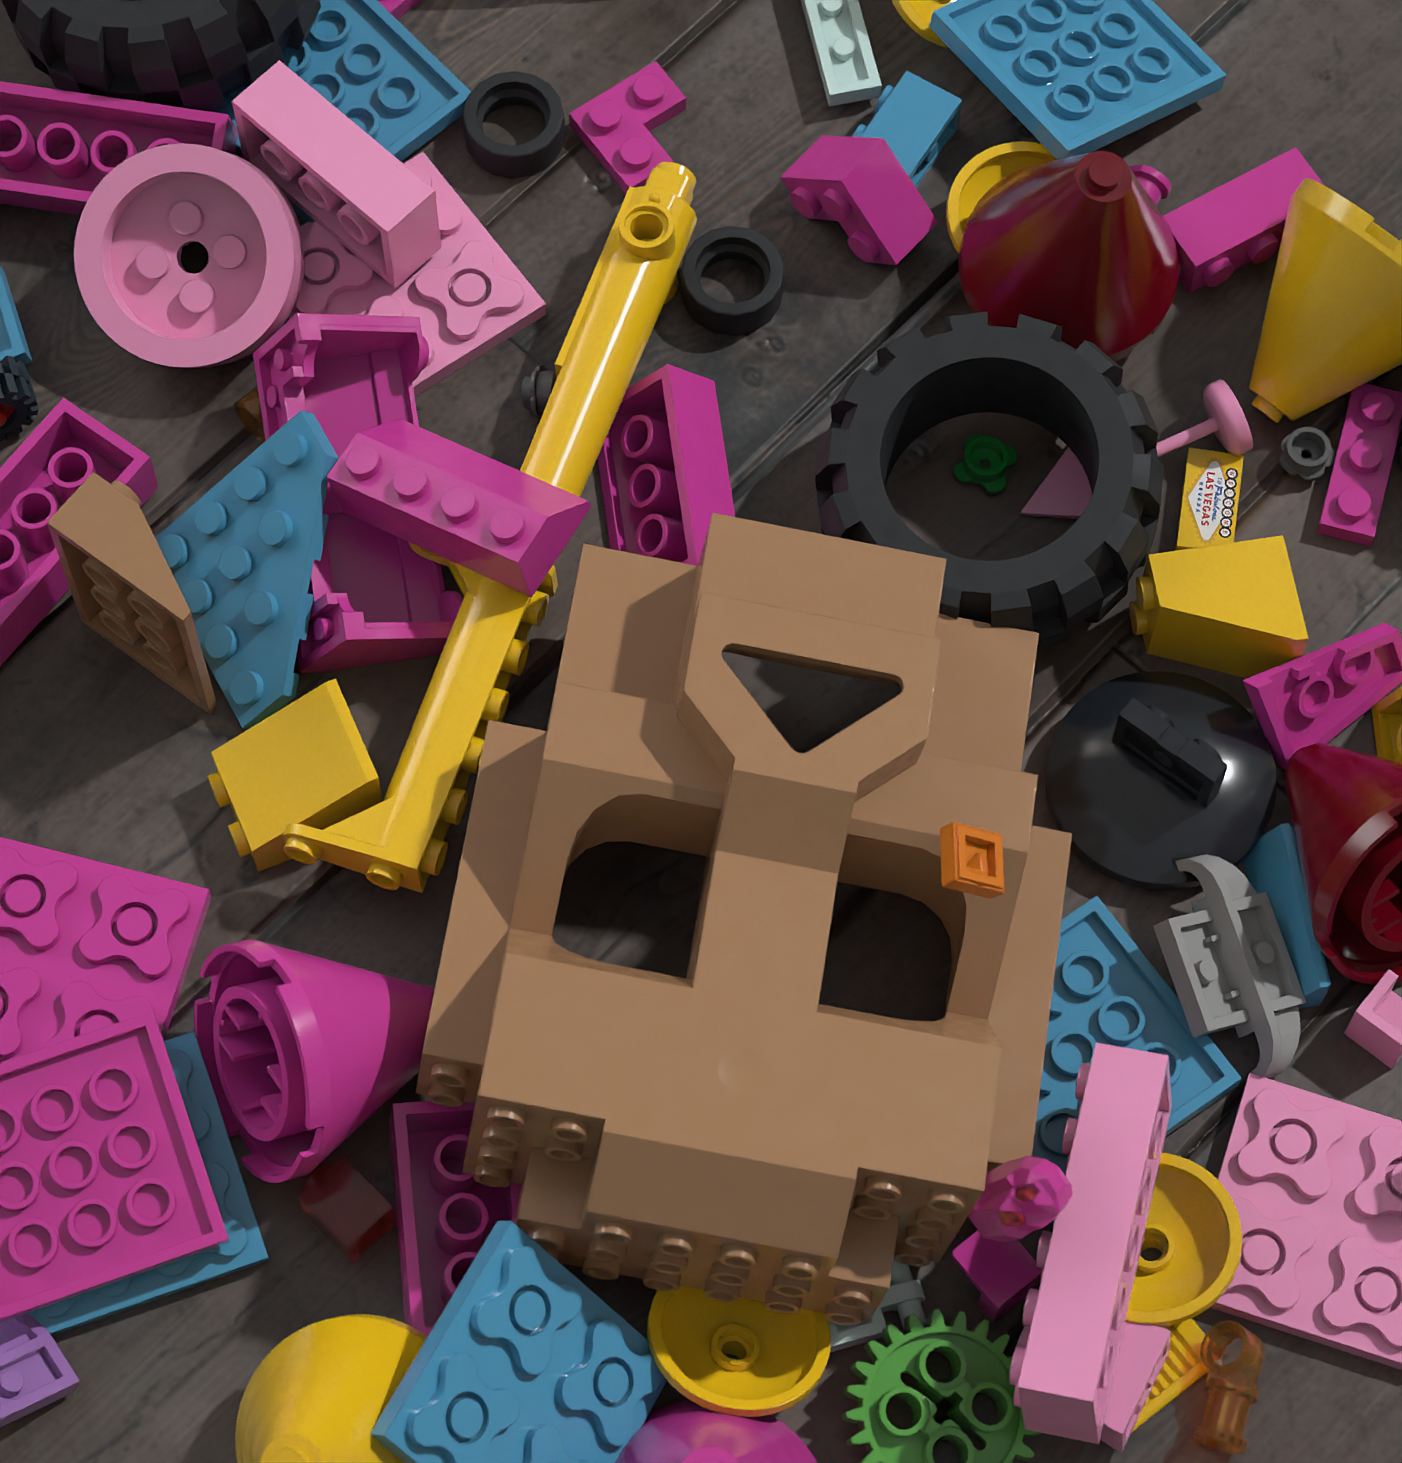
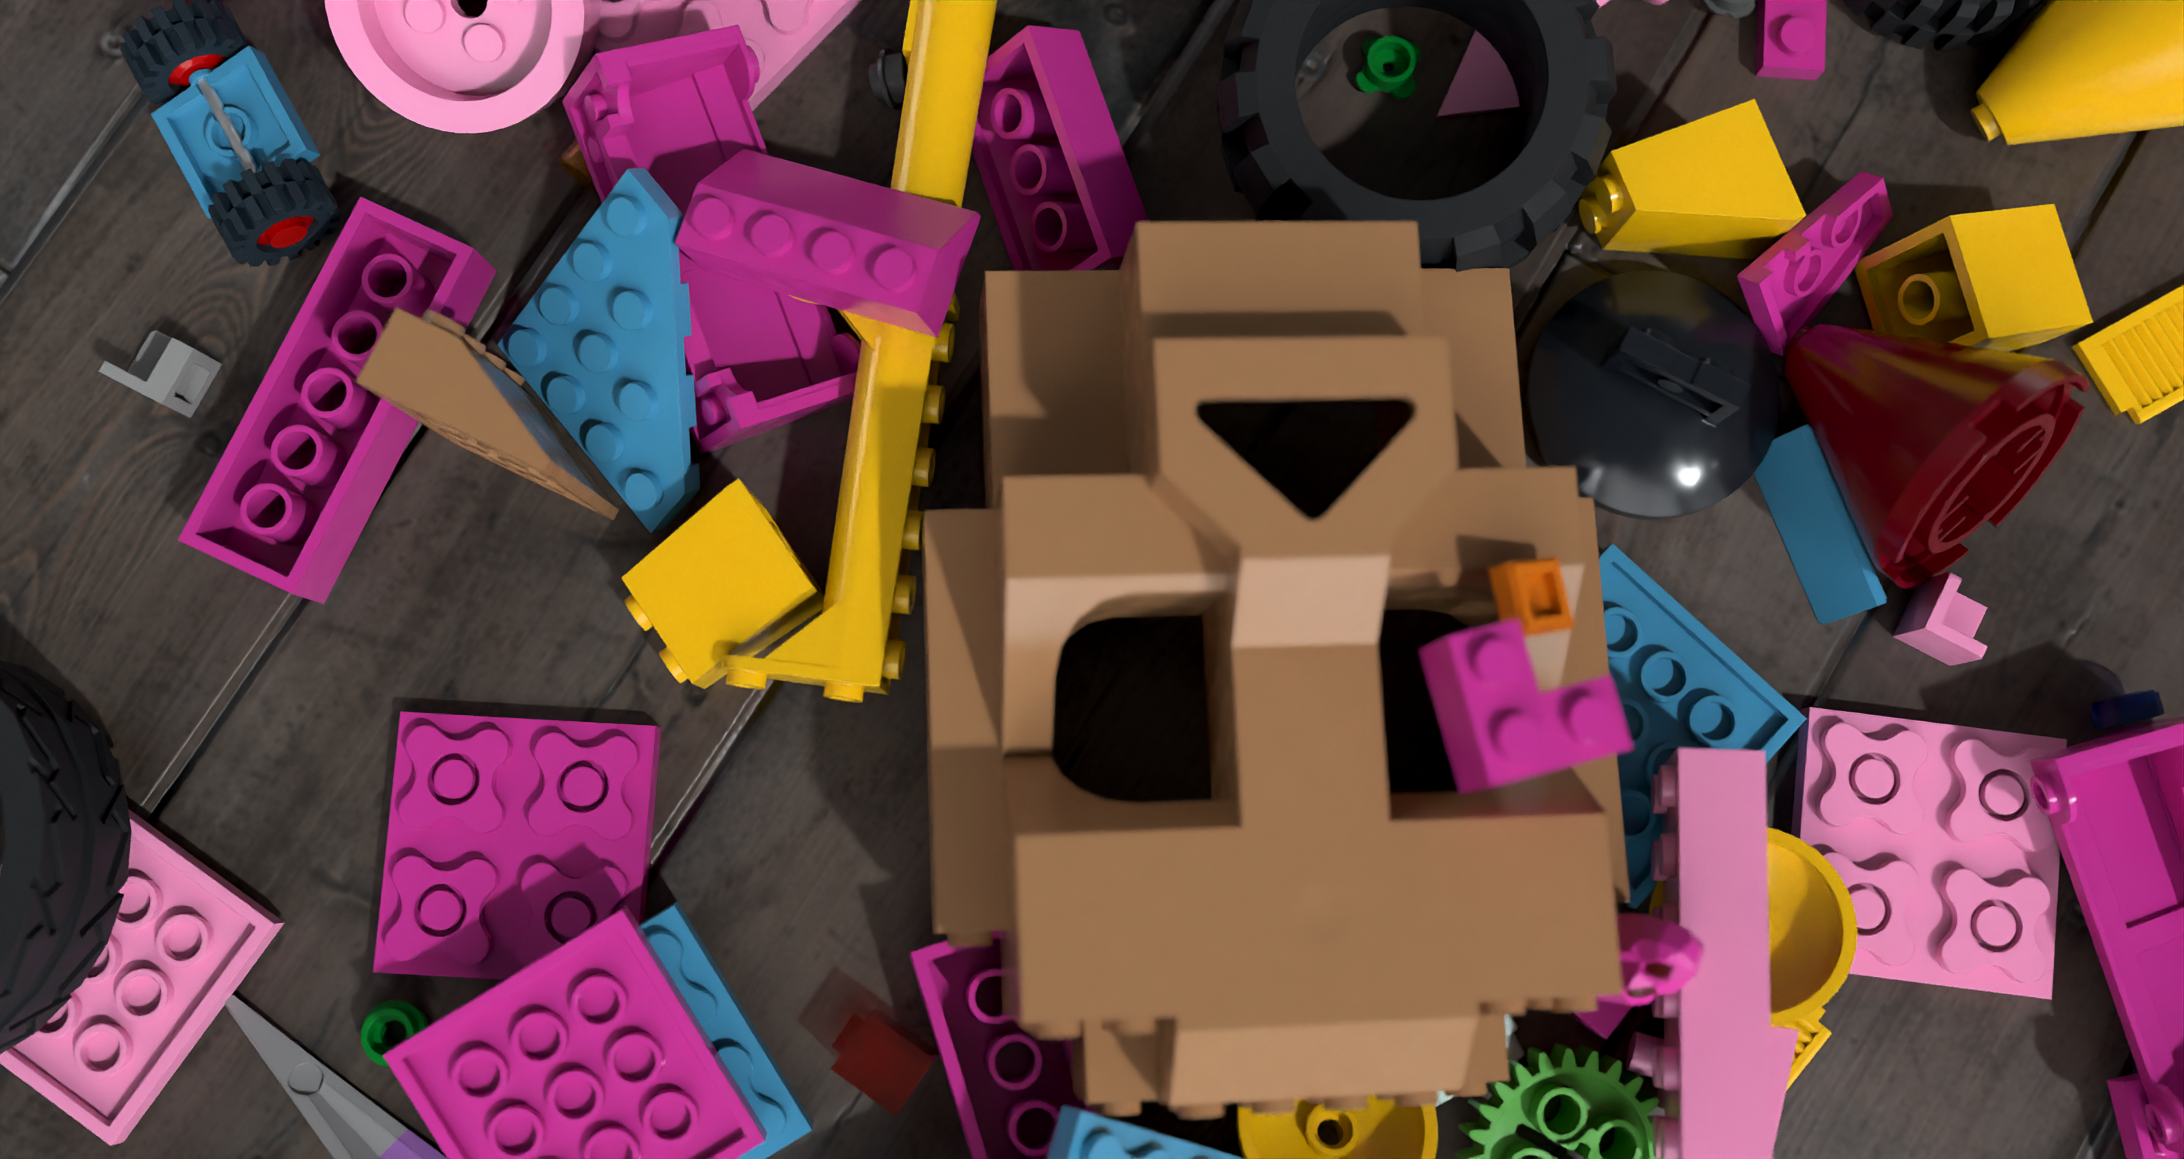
camera: 10 degrees left, 15 degrees up
(303, 1050) = (807, 909): dark pink cone -> none
(927, 950) = (1499, 720): none -> dark pink brick
(1209, 499) = (1641, 67): tile -> none
(1229, 1387) = (1860, 1068): clear orange connector -> none
(1234, 964) = (1776, 592): light grey plate -> none

